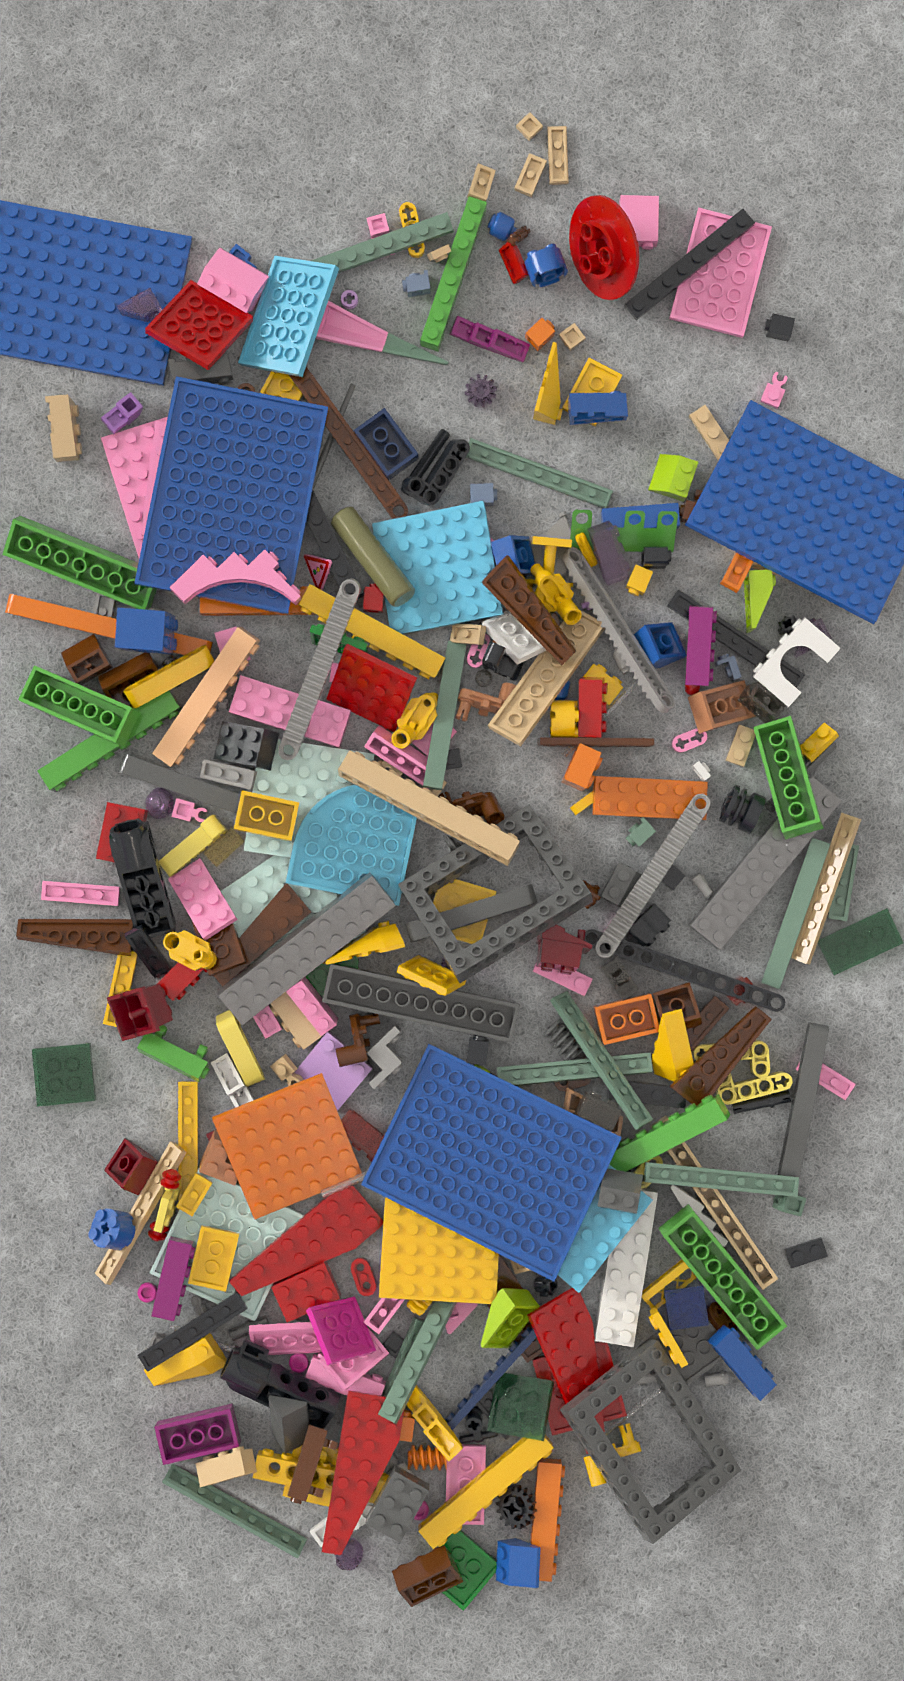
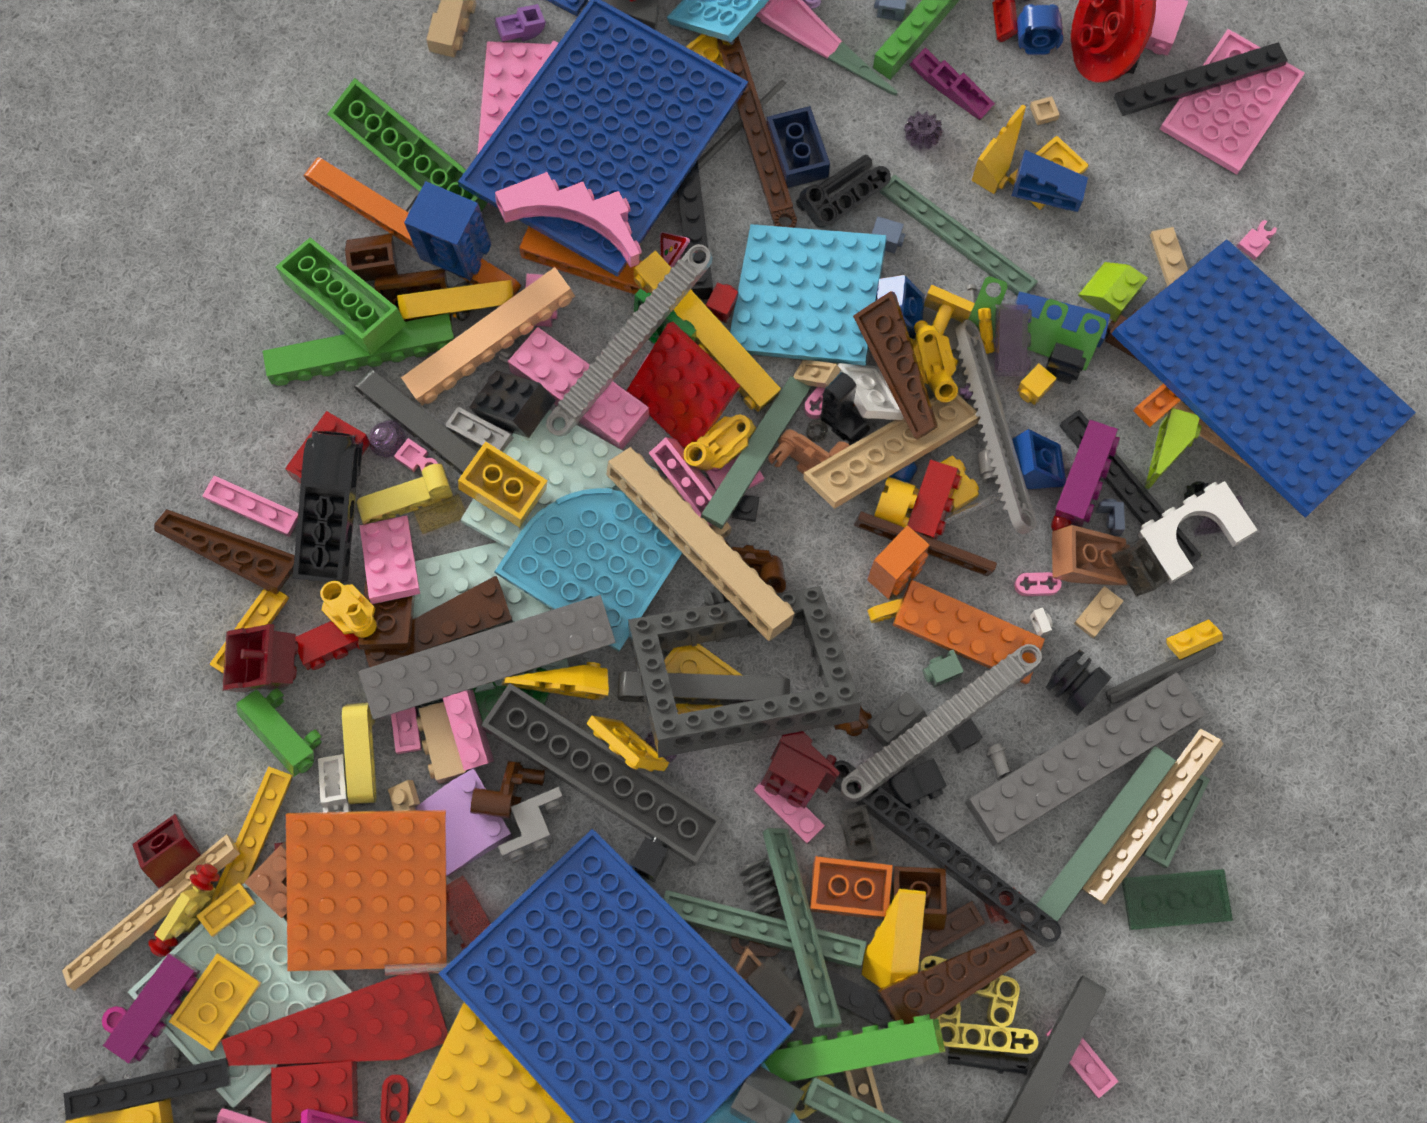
camera: 15 degrees right, 15 degrees down
(63, 1074) = (136, 708): clear green plate -> none
(112, 1229) = (106, 917): blue brick -> none
(147, 951) = (298, 595): black tile -> none
(373, 556) = (738, 253): olive cylinder -> none
(540, 333) = (1009, 95): orange brick -> none
(779, 327) = (1283, 175): black brick -> none
(788, 777) = (1148, 661): bright green brick -> none

